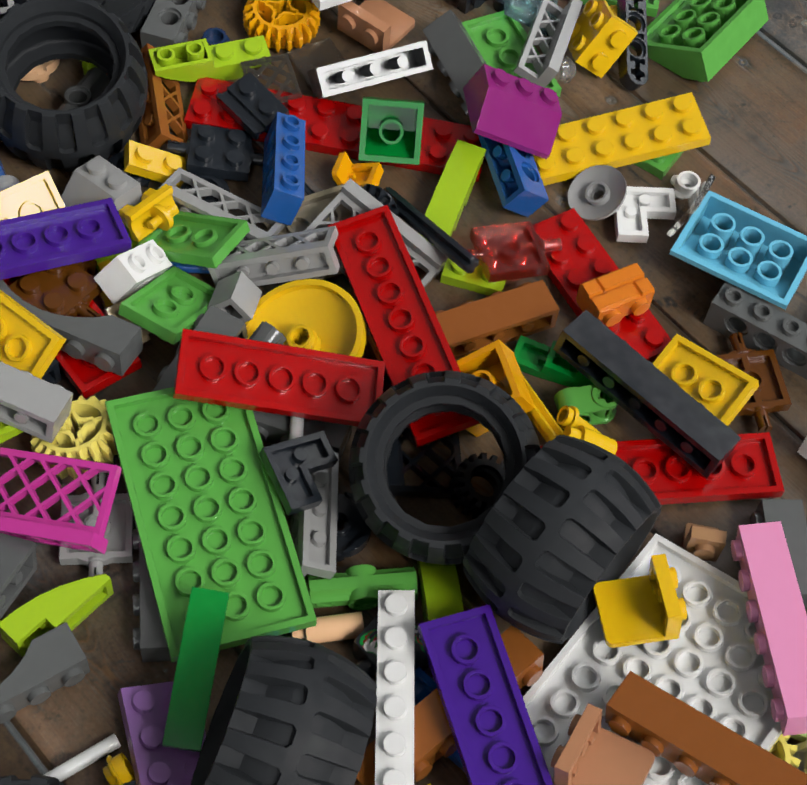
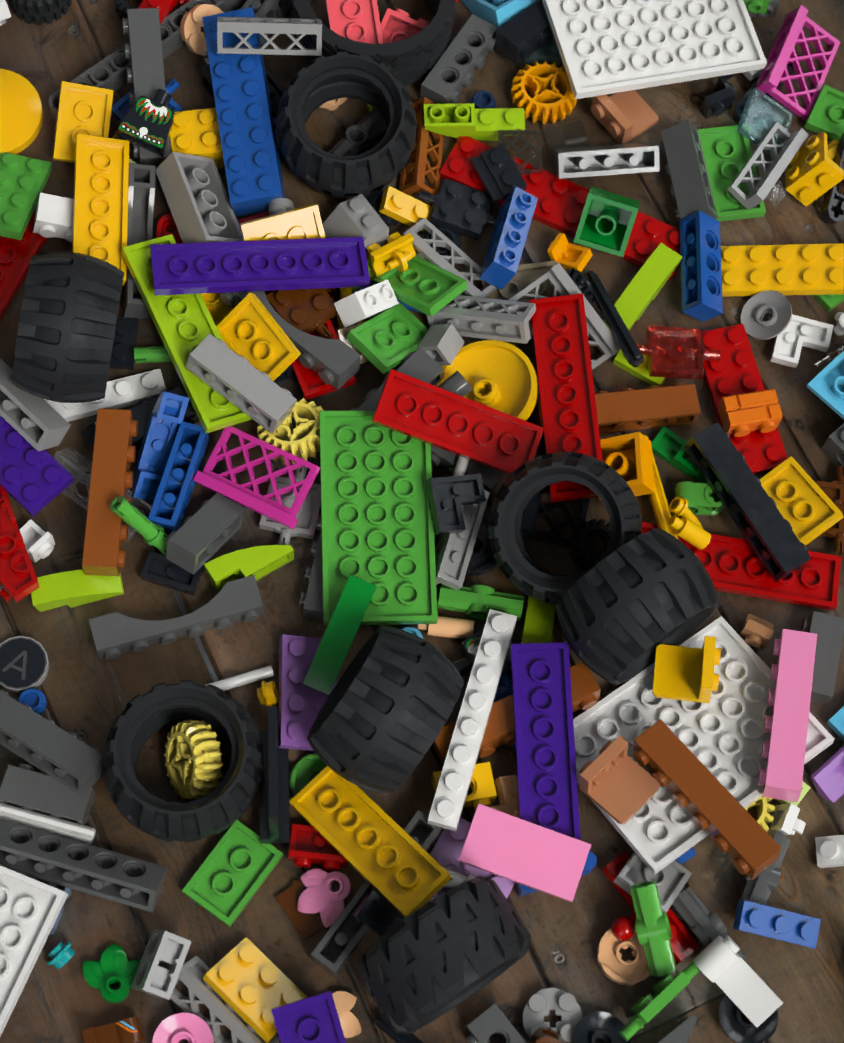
camera: 15 degrees right, 10 degrees up
(512, 110) = (712, 230): magenta slope -> none

